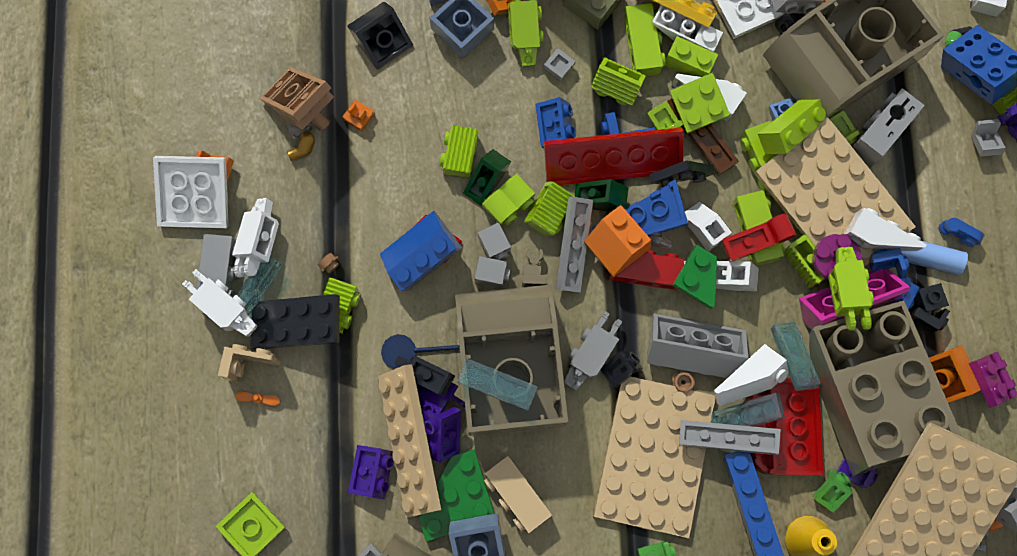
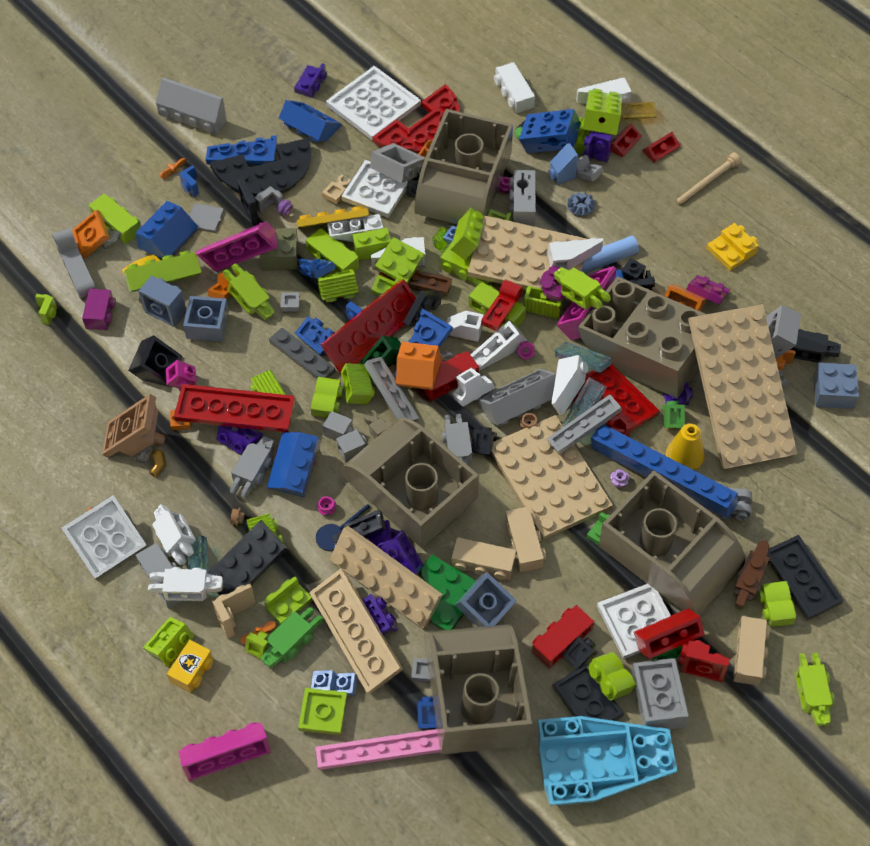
camera: 35 degrees left, 20 degrees down
(133, 495) = (224, 751): none -> dark pink slope
(171, 385) = (190, 666): none -> yellow brick
(172, 343) = (169, 641): none -> lime bracket
(245, 412) = (256, 644): none -> lime tile
(278, 429) = (290, 637): none -> bright green hinge
(284, 506) = (336, 682): none -> medium blue slope
(306, 389) = (286, 600): none -> lime bracket
(340, 473) = (356, 631): none -> tan plate
(383, 220) = (252, 466): none -> light grey hinge
(391, 70) = (180, 373): none -> dark pink brick
(396, 176) = (238, 438): none -> dark purple bracket
(408, 149) = (235, 408): none -> red plate
(419, 311) = (326, 501): none -> dark pink plate
(486, 176) = (300, 389): dark green slope -> none
(497, 384) = (415, 482): clear light blue plate -> none
(525, 133) = (301, 354): none -> dark grey plate
(574, 506) = (525, 539): none -> tan brick
(611, 48) = (315, 268): none -> blue bracket
(657, 301) = (471, 386): none -> white brick
(699, 277) = (485, 353): green wing -> none
(716, 510) = (619, 483): none -> lavender plate
(742, 304) = (524, 345): none -> dark pink plate
(762, 103) = (438, 240): none -> clear neon green arm
(882, 94) = (504, 185): none -> dark pink plate
(887, 259) = (591, 263): blue bracket -> none
(941, 179) = (581, 209): none -> sand blue gear
(965, 116) = (564, 165): none -> medium blue slope
(968, 234) = (618, 226): blue plate -> none

